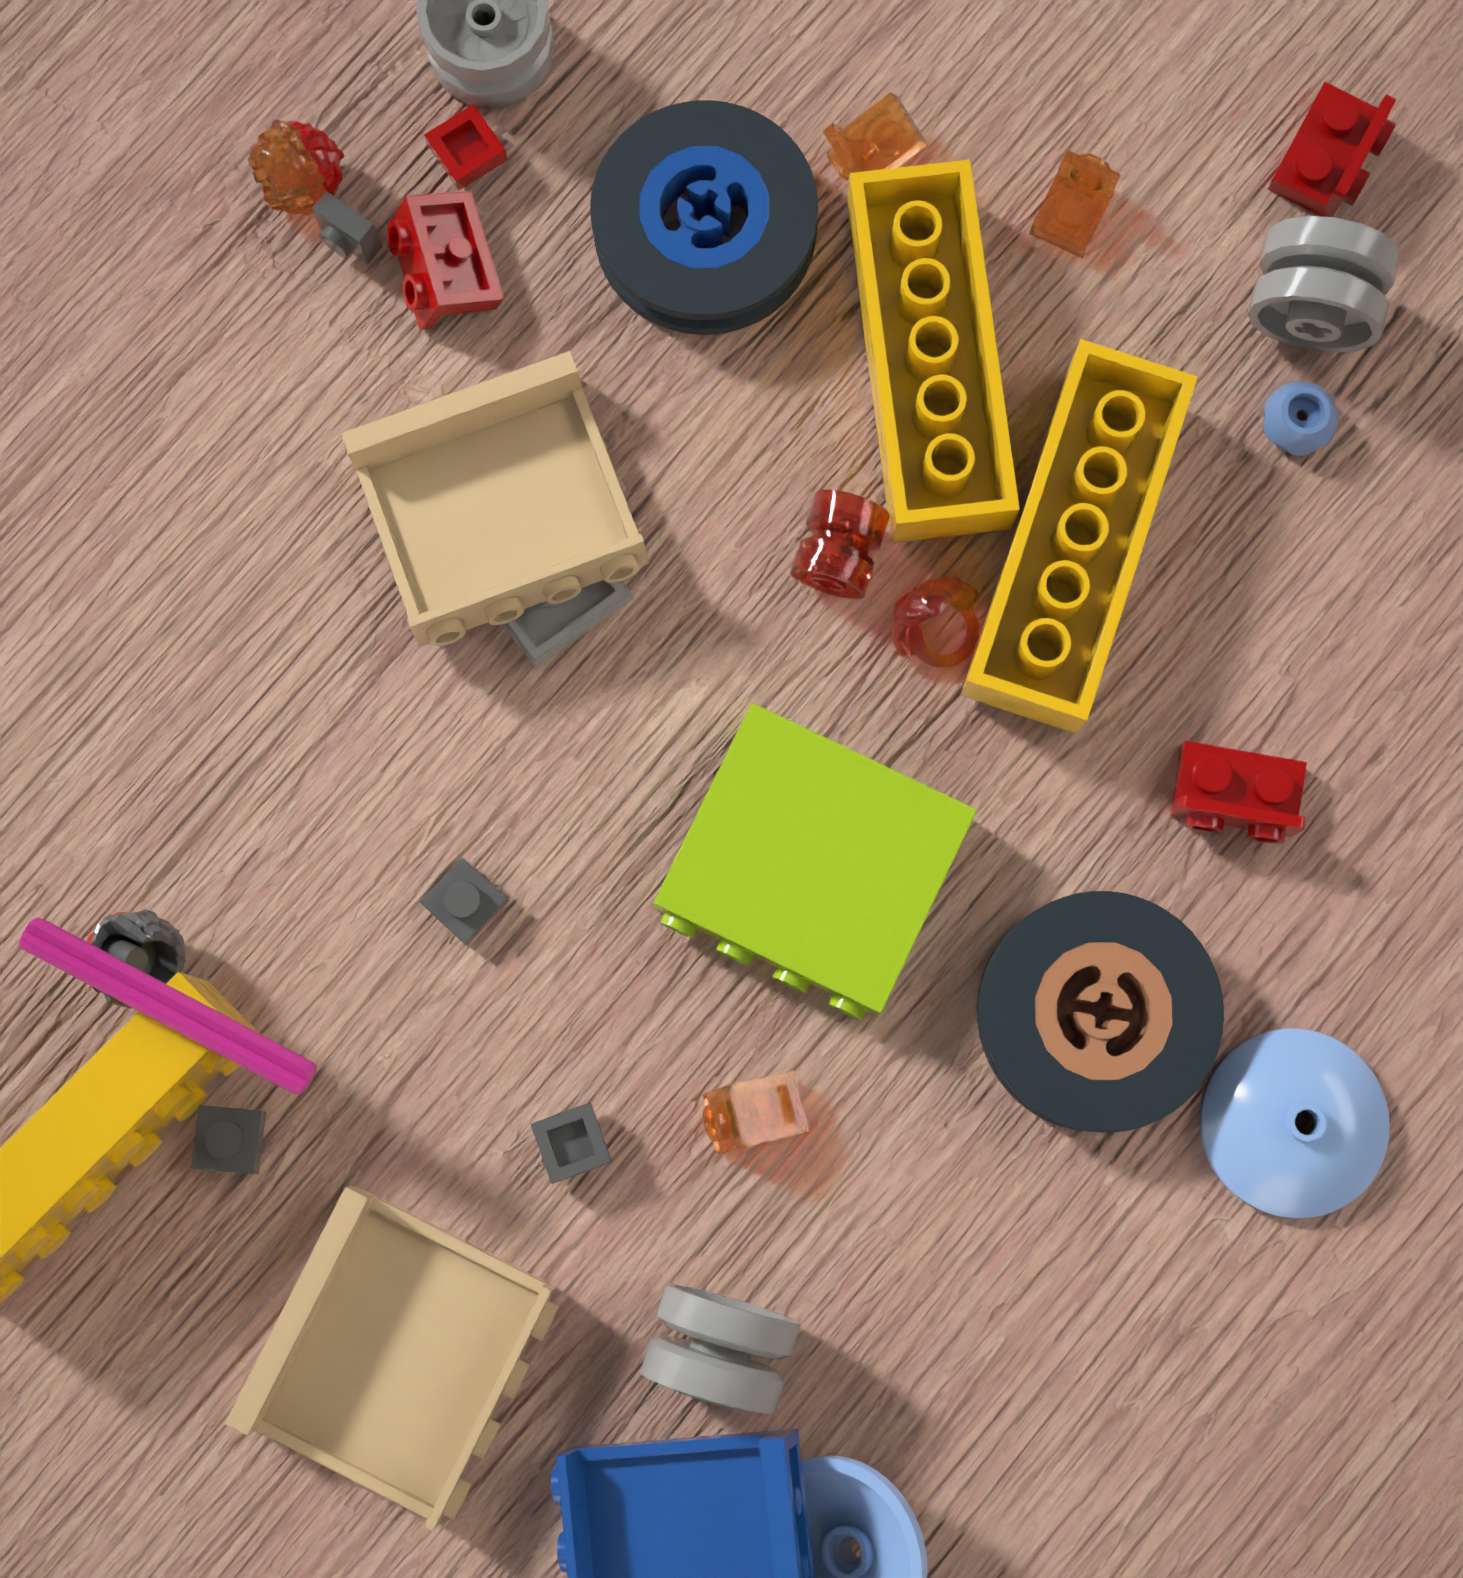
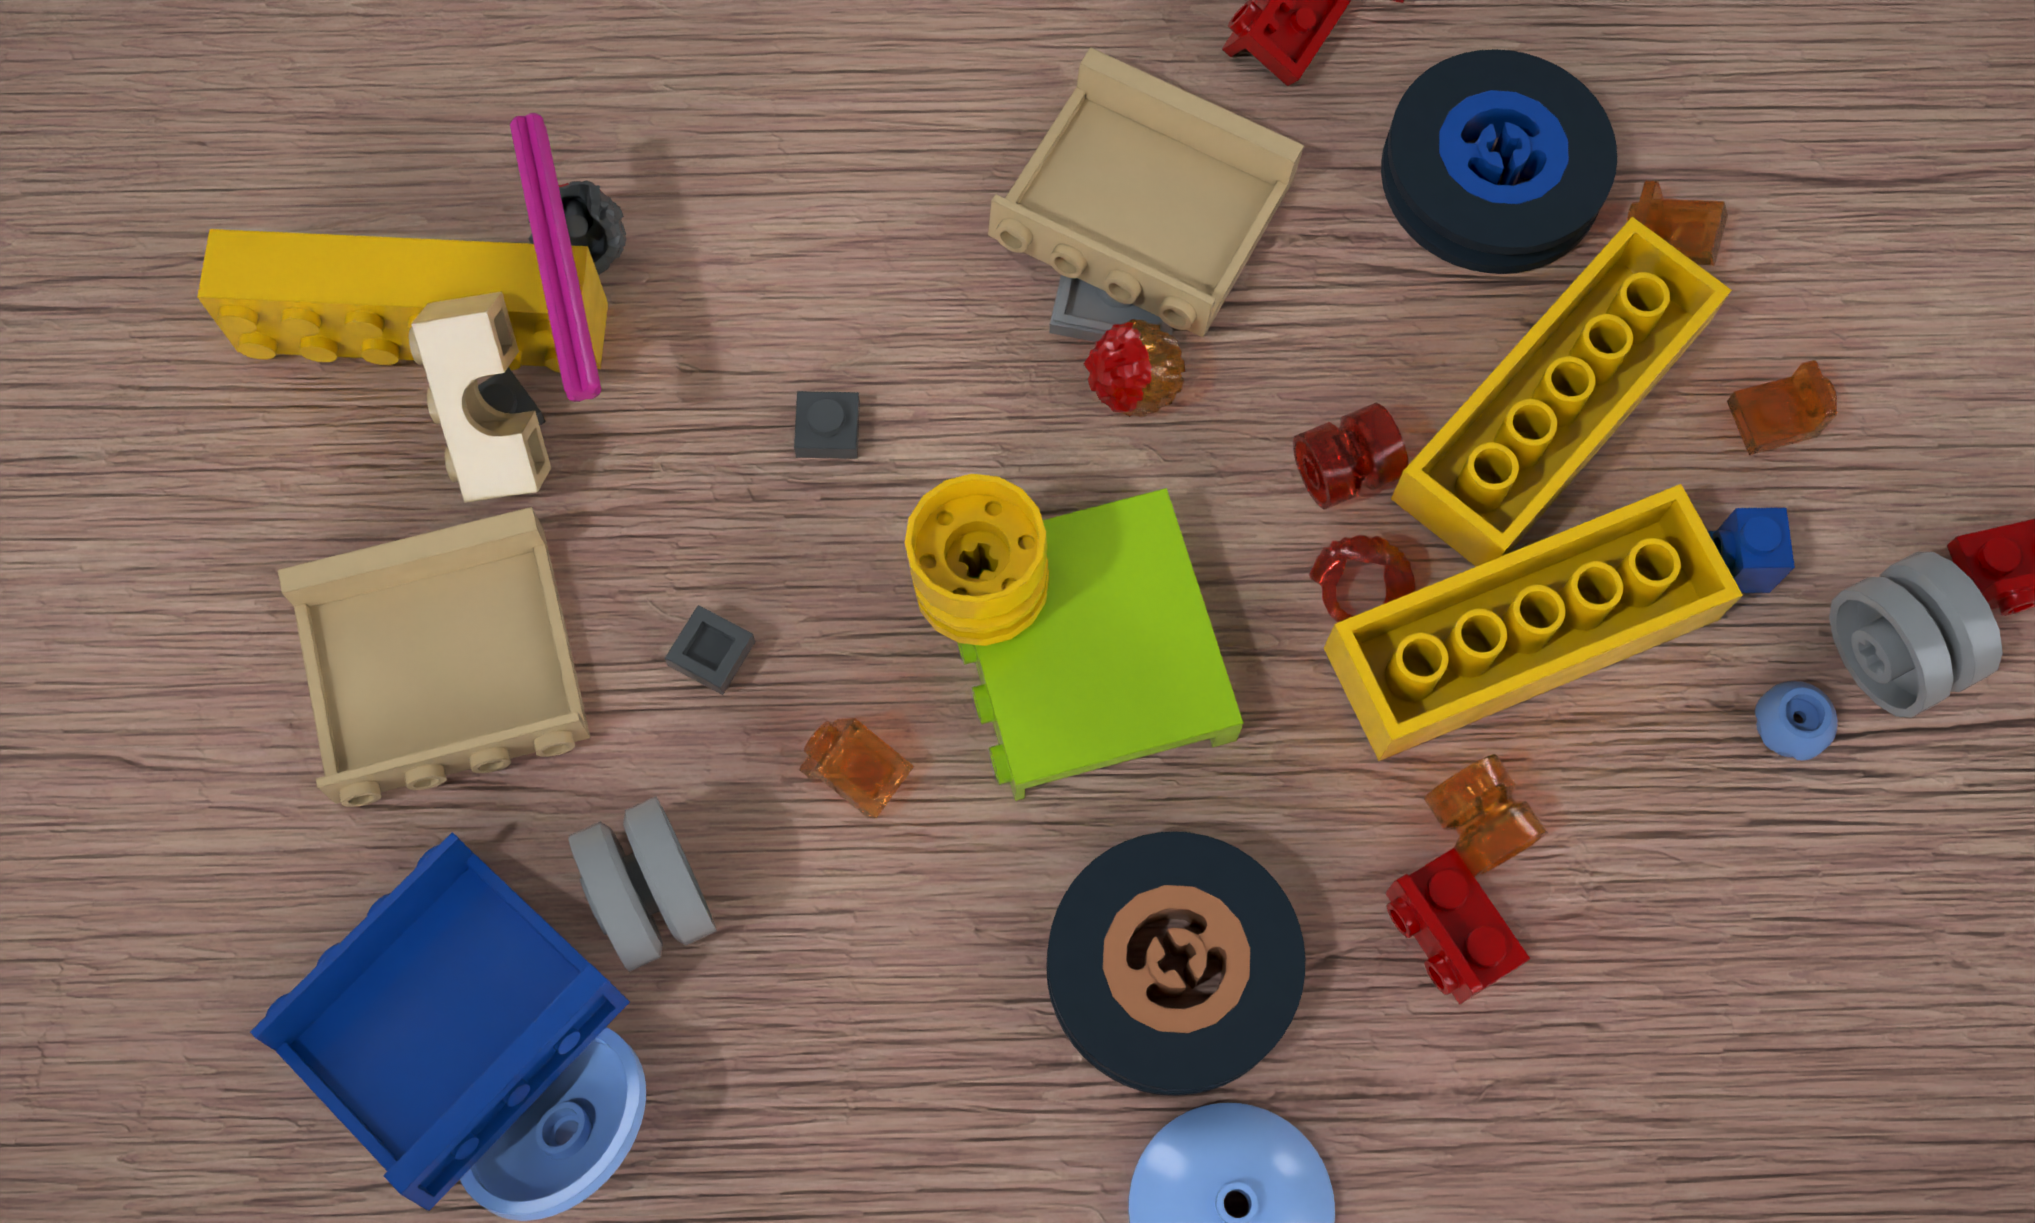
camera: 45 degrees right, 10 degrees down
(179, 1139) = (486, 449): none -> tan arch
(633, 636) = (1136, 368): none -> piece
(664, 890) = (970, 527): none -> yellow wheel
(1160, 328) = (1756, 547): none -> blue brick
(1186, 699) = (1485, 815): none -> clear orange wheel

